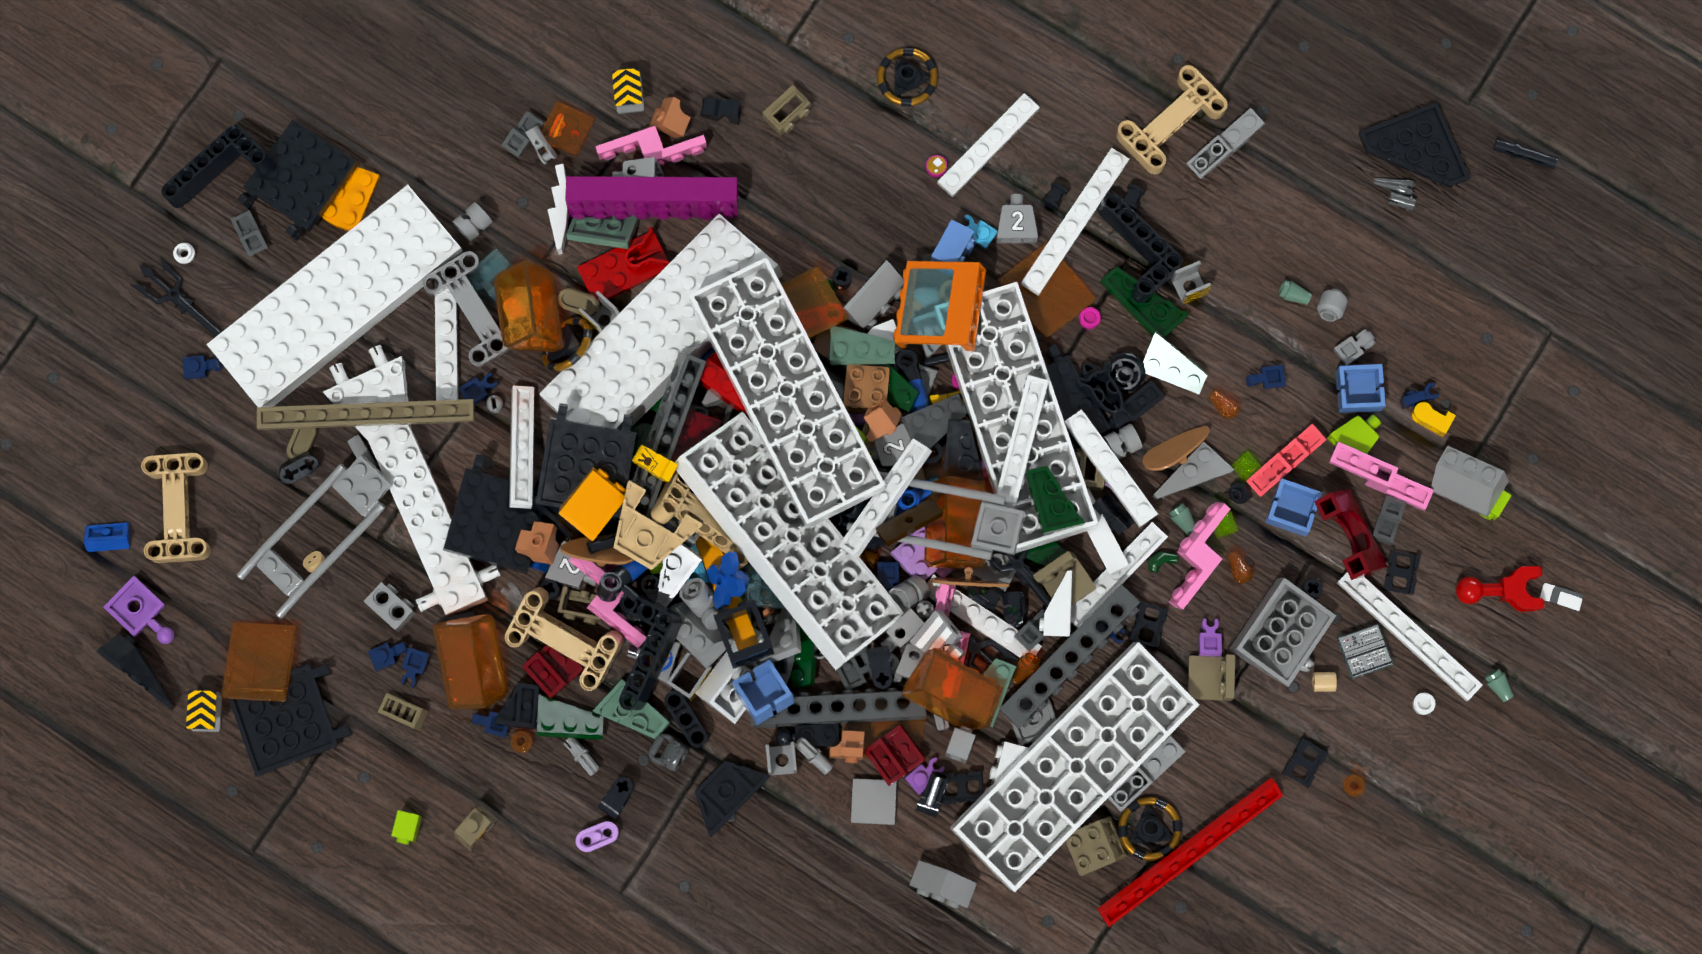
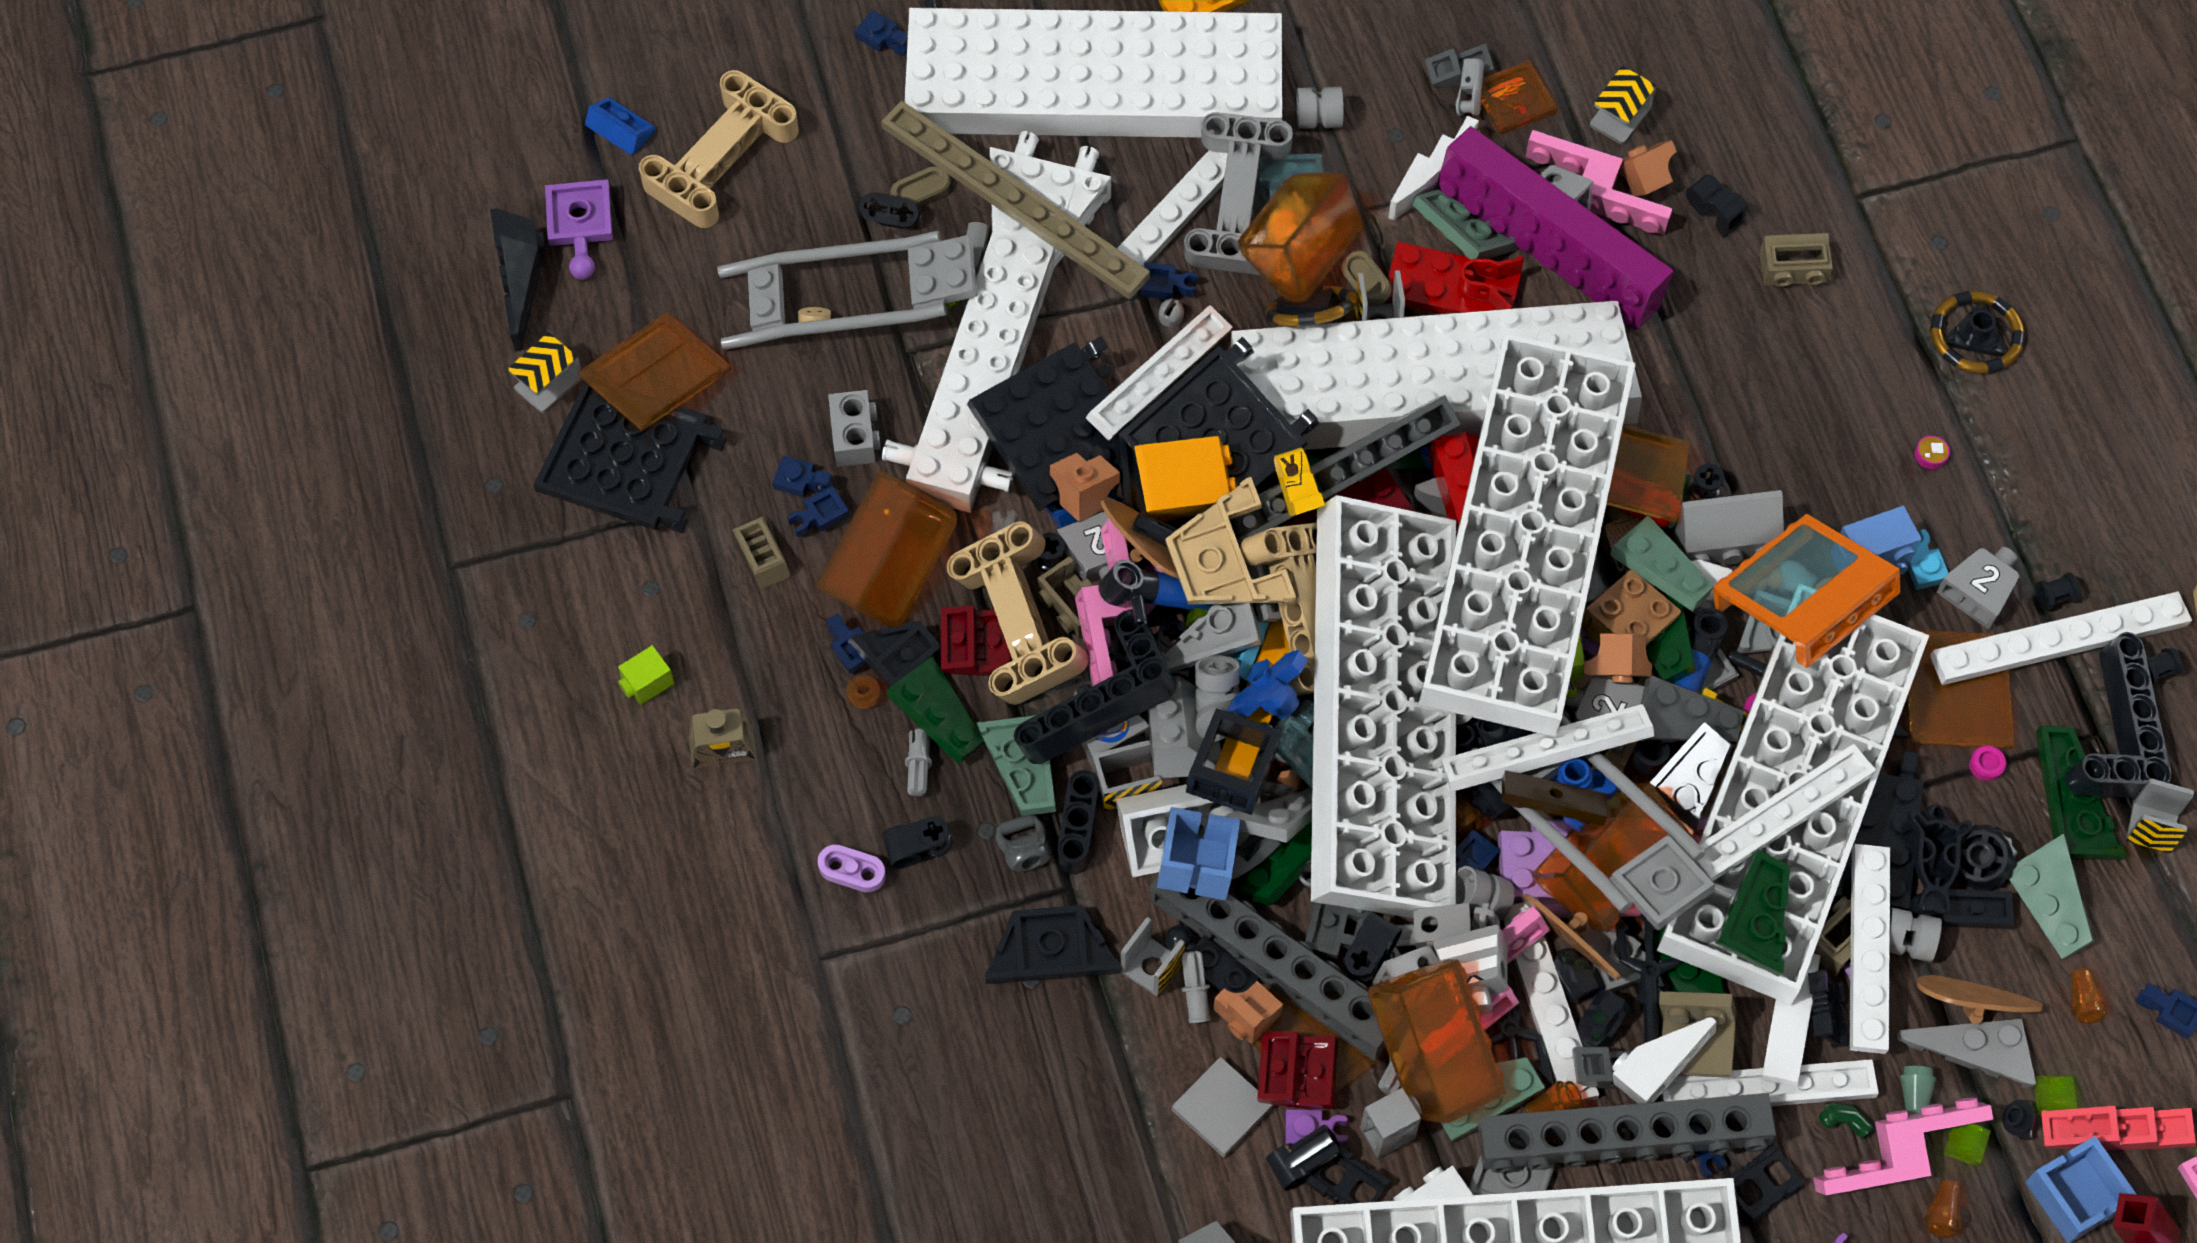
camera: 40 degrees right, 15 degrees down
(988, 145) = (2018, 476): white plate -> none

